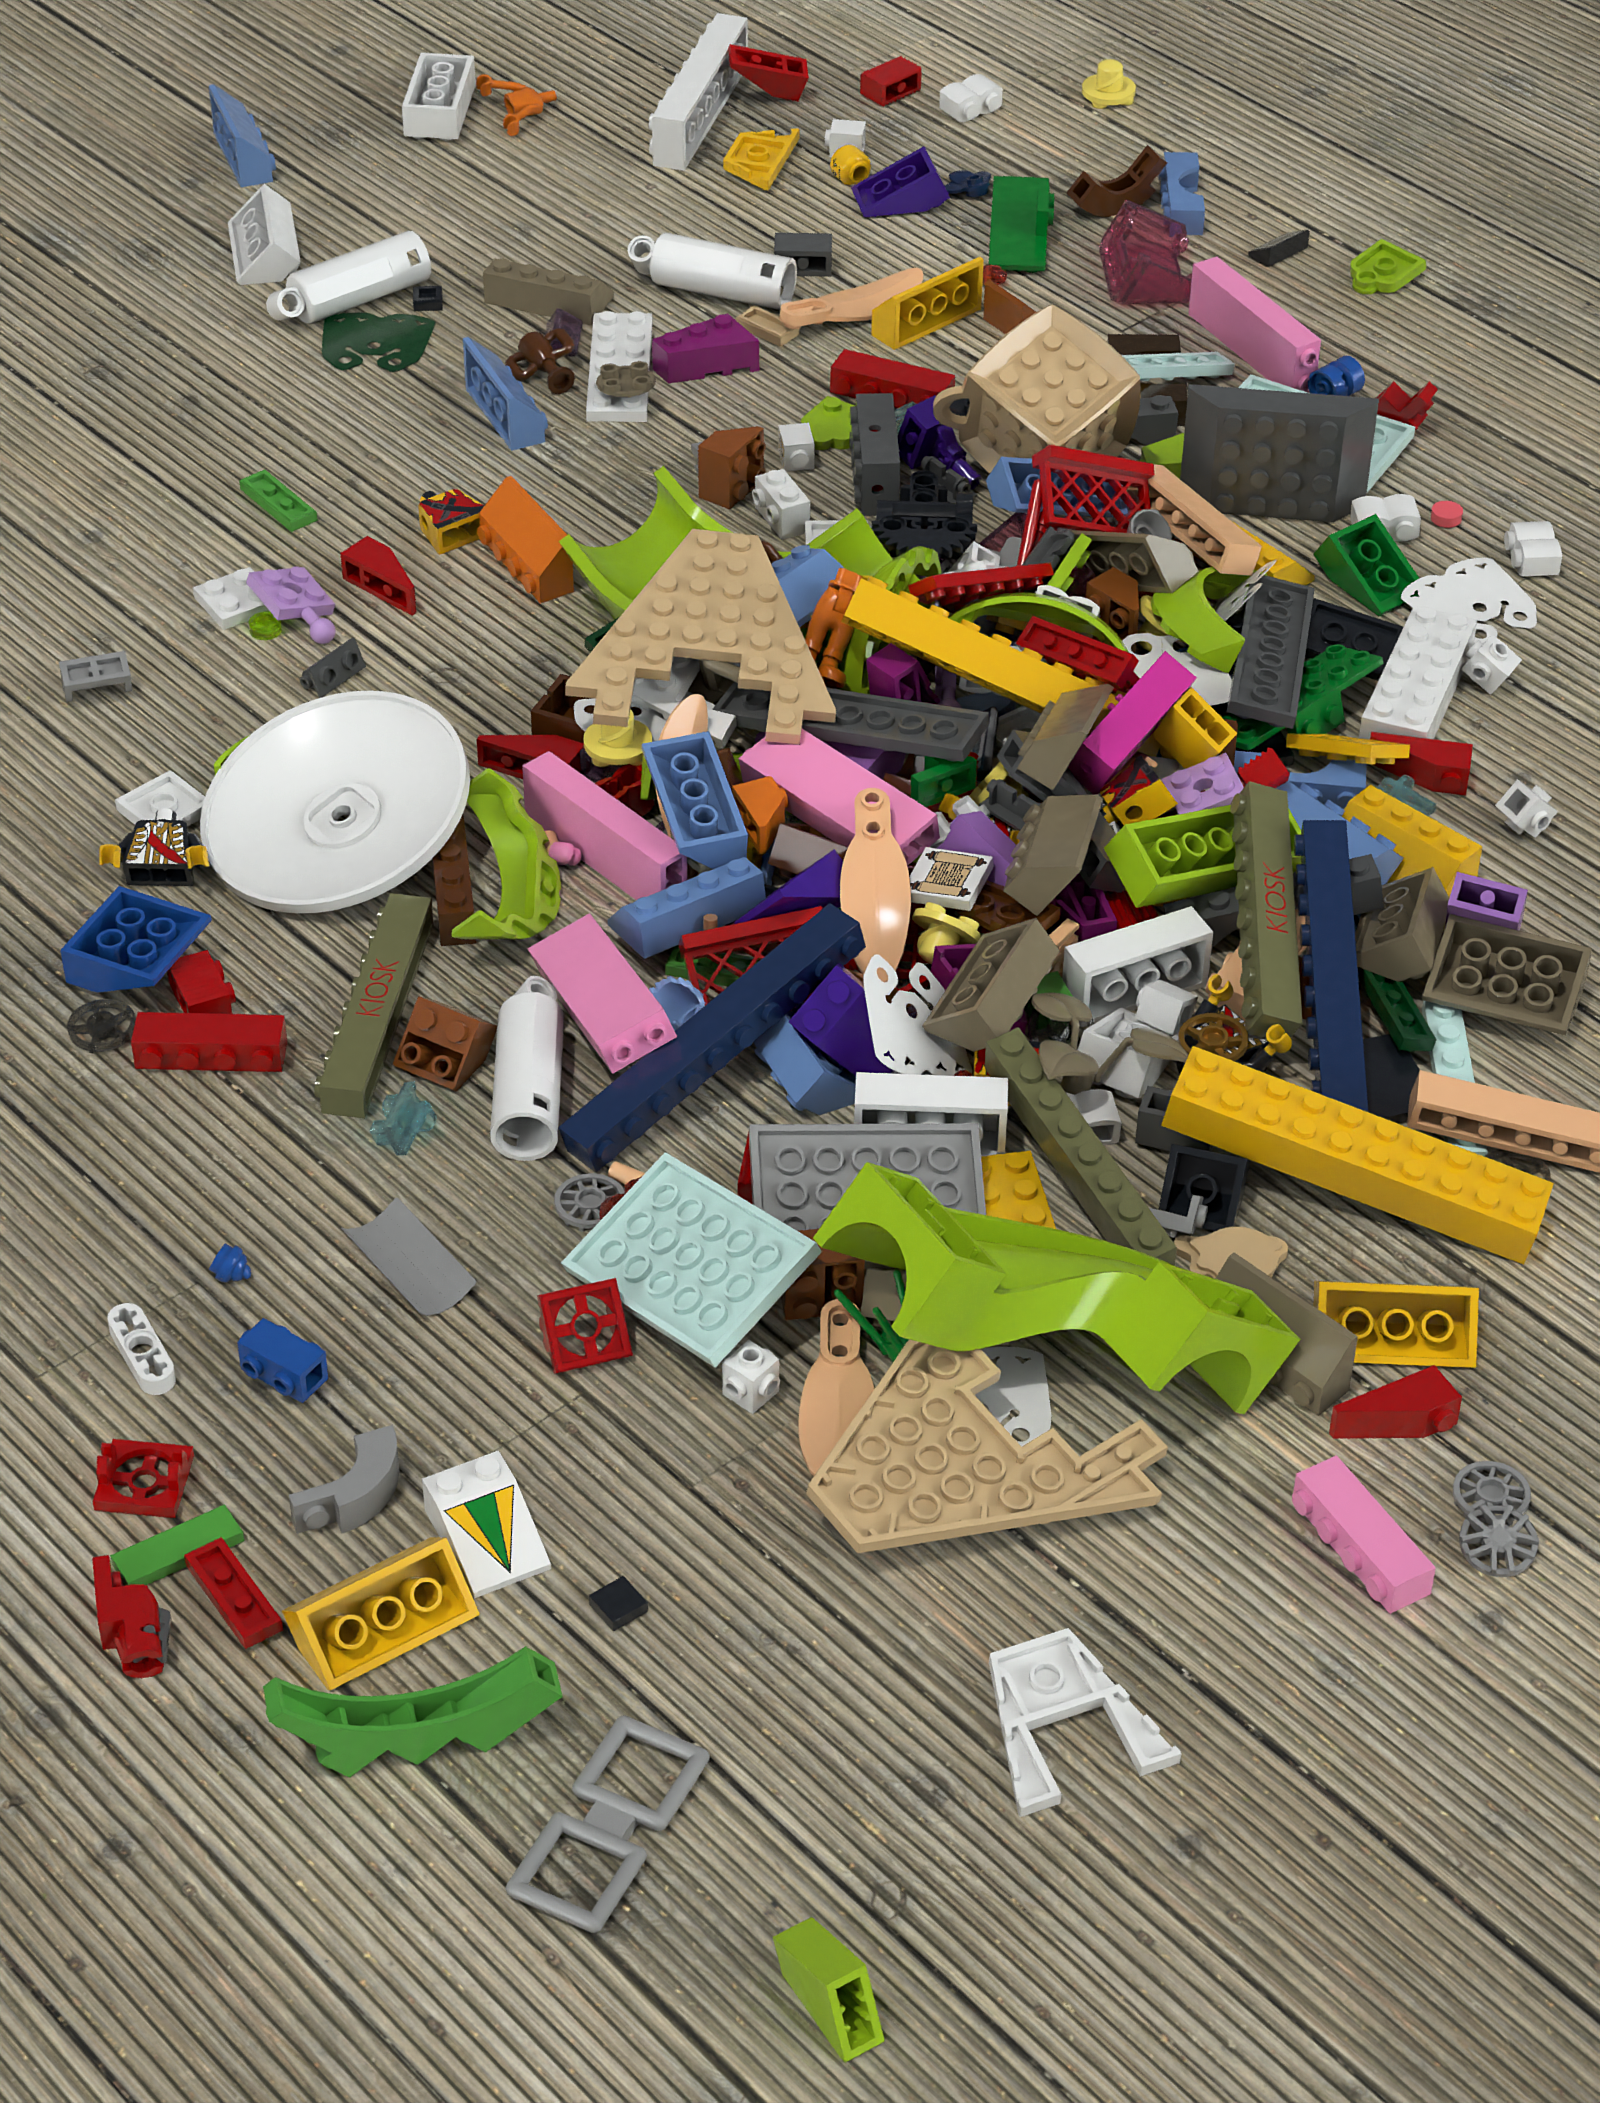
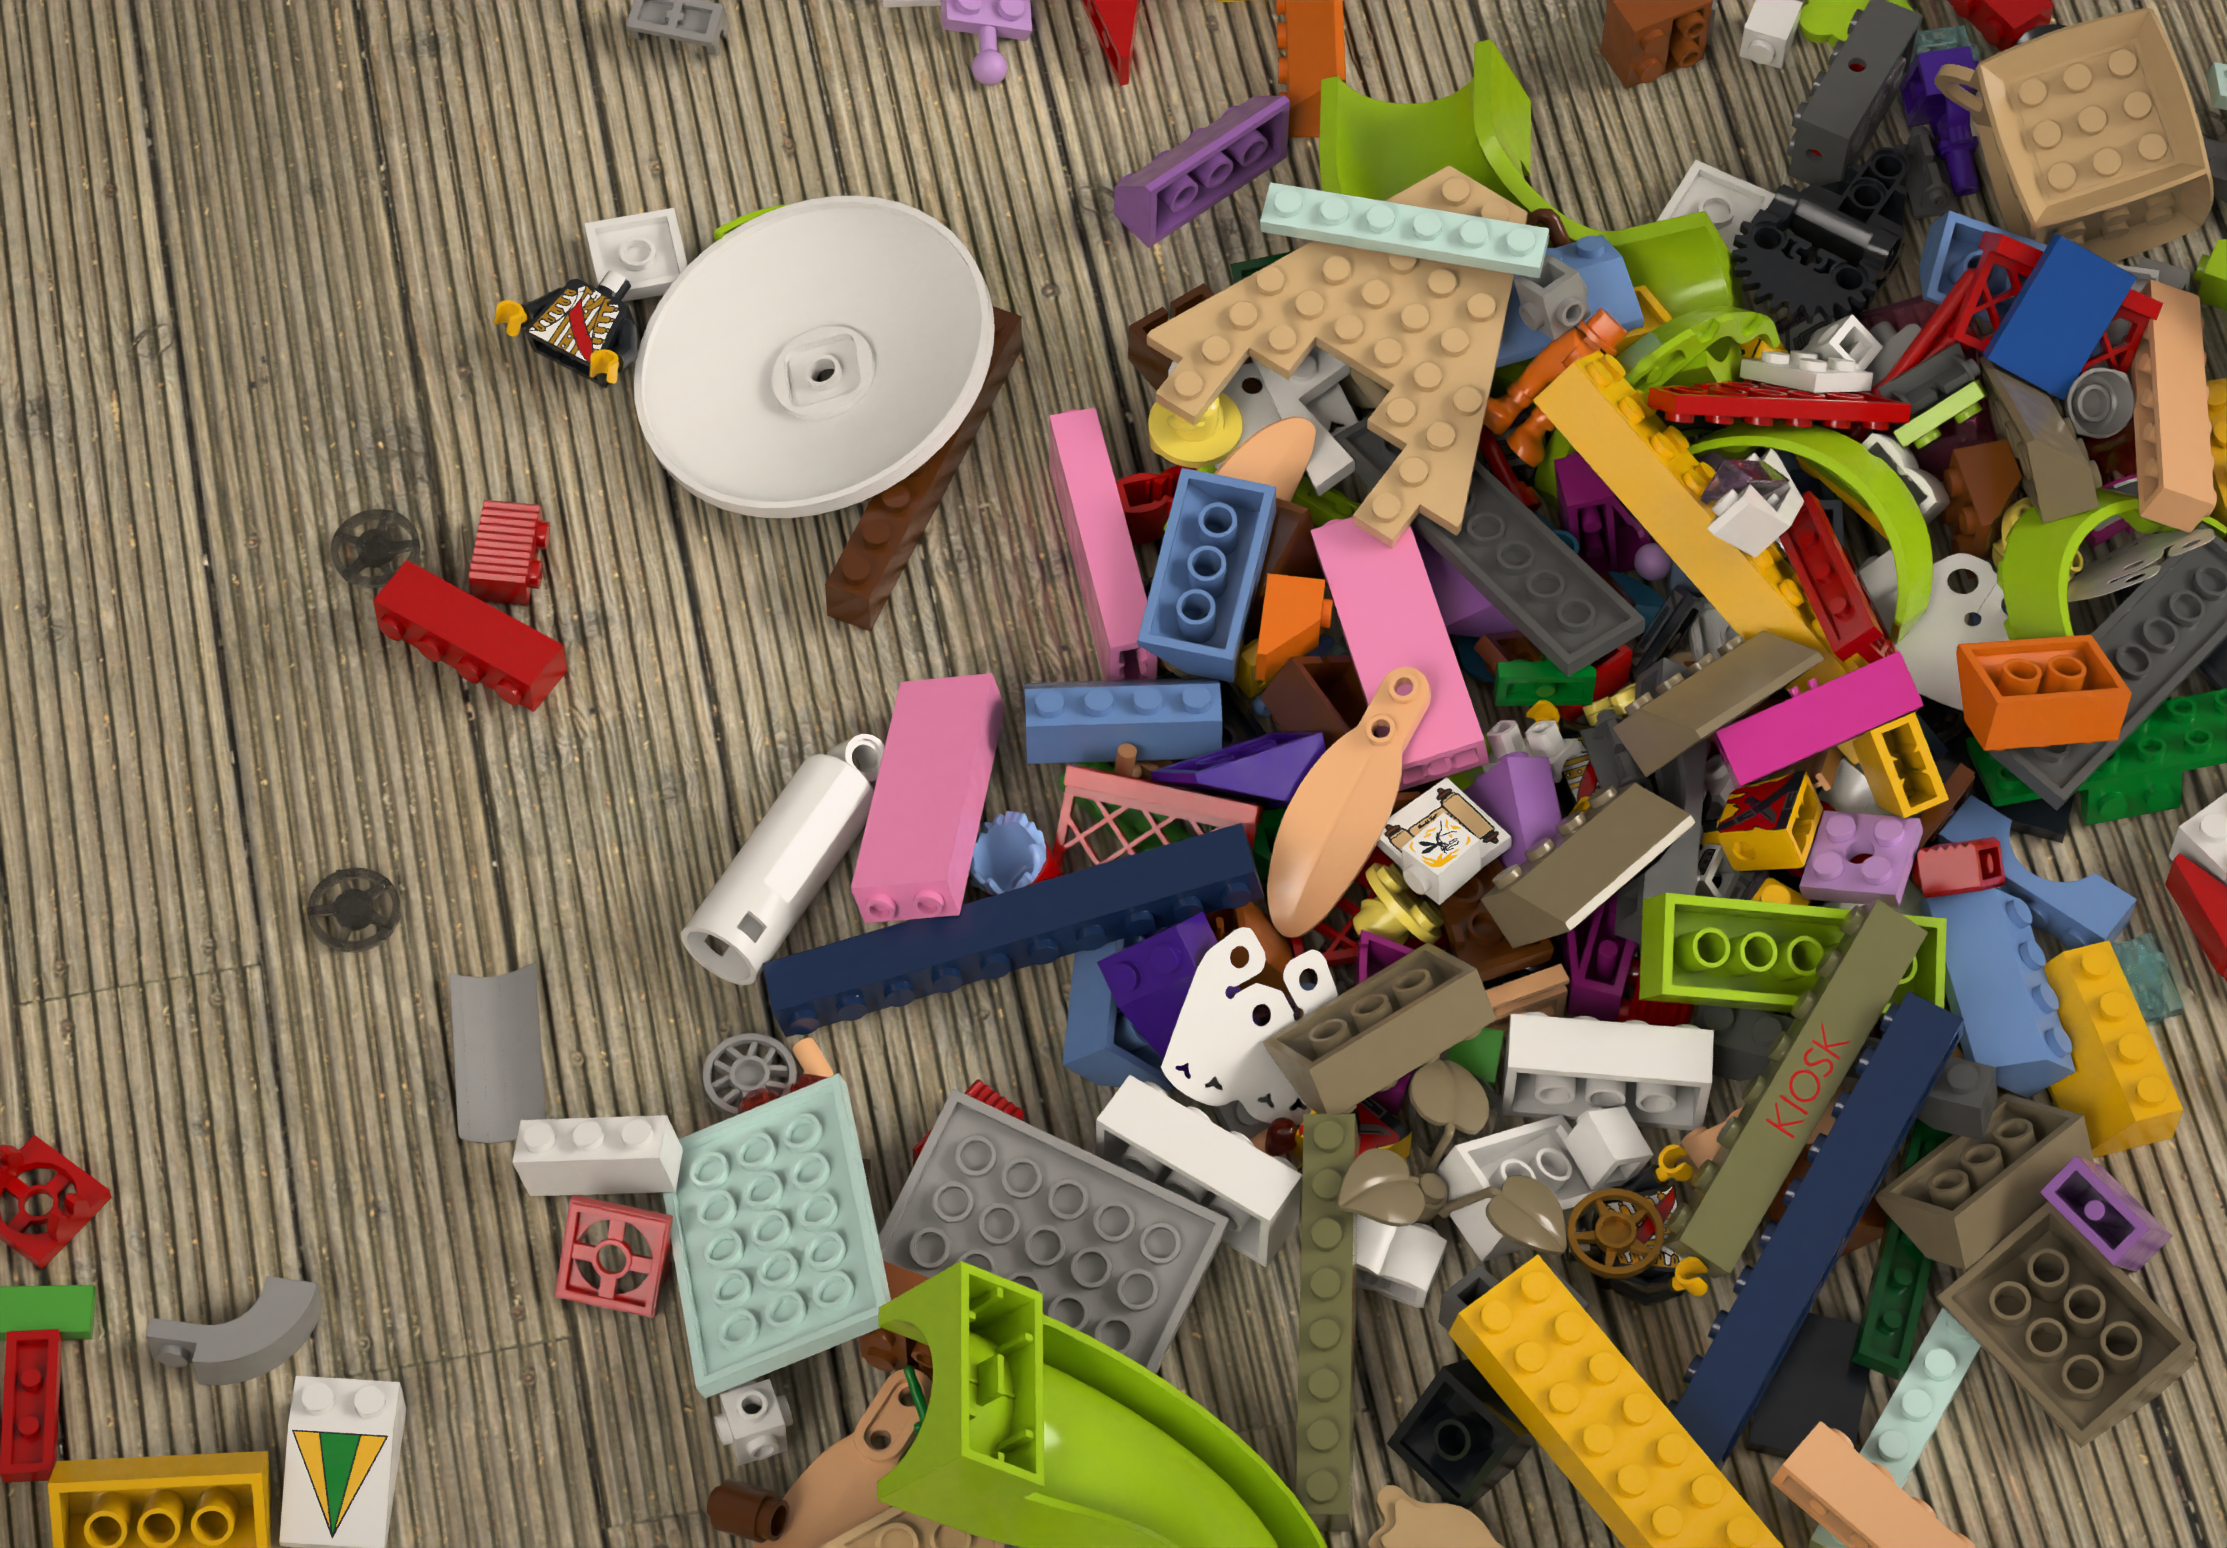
camera: 30 degrees right, 15 degrees up
(130, 942) = (462, 452): blue slope -> none
(140, 1362) = (148, 1045): white beam -> none
(230, 1264) = (305, 962): blue plate -> none
(243, 1223) = (354, 909): none -> clear smoke wheel
(264, 626) = (927, 26): clear neon green tile -> none
(282, 1360) = (260, 1116): blue brick -> none
(334, 668) = (966, 134): dark grey hinge -> none
(374, 1006) = (686, 674): olive brick -> none
(404, 1119) = (614, 856): clear light blue hips -> none
(444, 1043) = (727, 768): dark orange slope -> none
(505, 628) = (1204, 168): none -> medium lavender slope
(510, 752) = (1103, 381): red slope -> none
(526, 870) = (988, 562): lime windscreen -> none
(539, 1266) = (598, 1155): none -> white brick
(562, 852) = (1047, 544): bright pink arm -> none
(692, 566) = (1404, 230): none -> light aqua plate
(781, 503) = (1684, 117): white brick -> none
(786, 1425) = (747, 1511): none -> reddish brown brick
(805, 574) = (1554, 300): none -> light grey brick
(964, 877) = (1441, 859): none -> white brick
(1001, 612) = (1738, 475): none -> slope
(1015, 1189) = (1230, 1327): yellow plate -> none
(1016, 622) = (1756, 520): none -> white slope
(1103, 484) = (2059, 316): none -> blue tile
(1174, 1222) = (1395, 1466): light grey bracket -> none
(1247, 662) = (2040, 692): none -> orange slope
(1343, 748) = (2127, 864): yellow plate -> none

